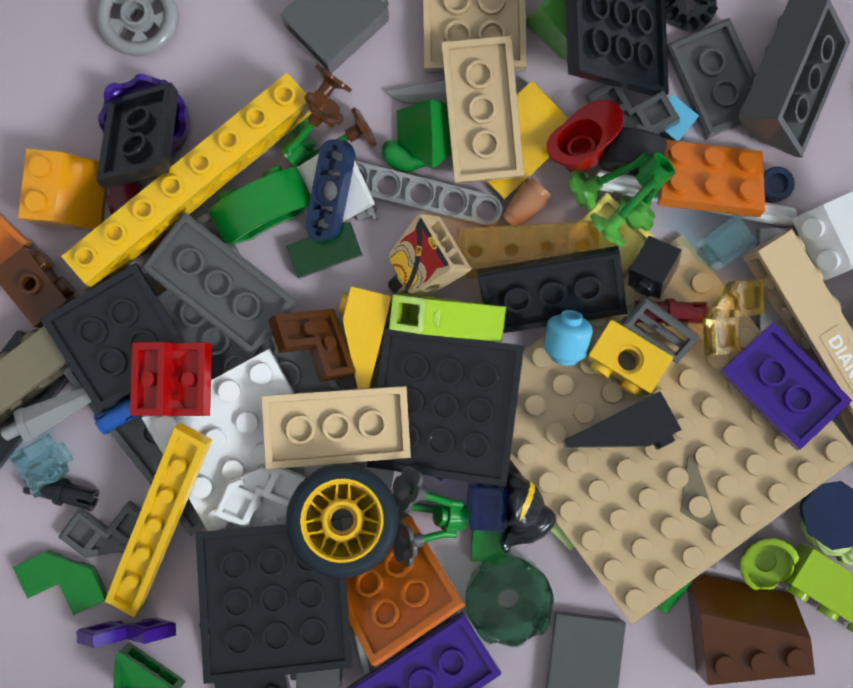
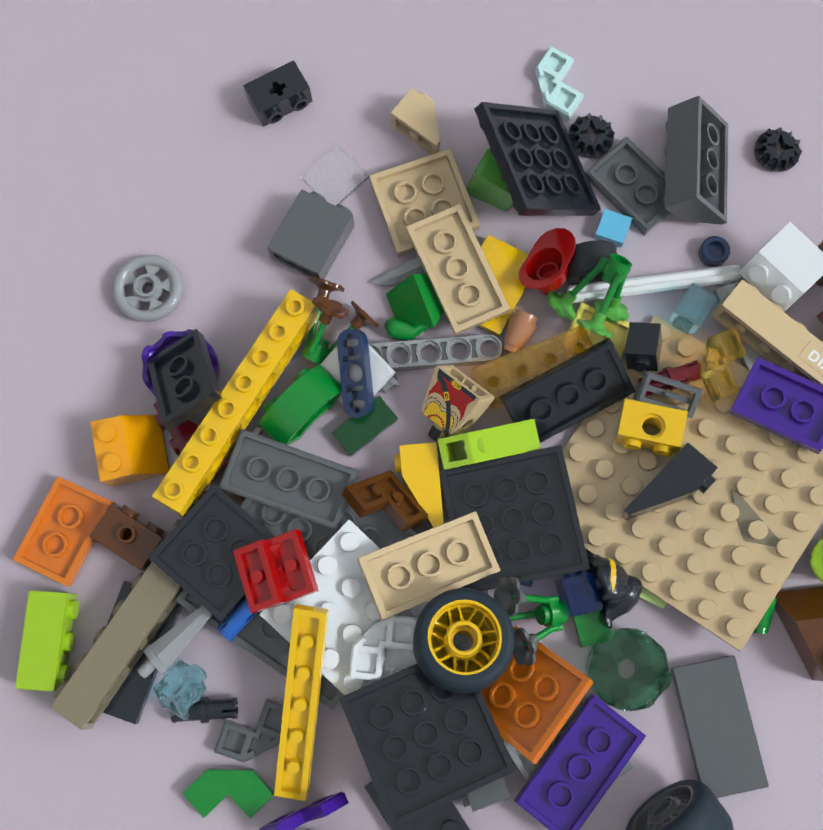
camera: 15 degrees left, 10 degrees down
(568, 338) = (594, 427): medium azure head -> none
(652, 114) = (595, 227): dark grey tile -> none
(714, 179) = (665, 262): orange plate -> none

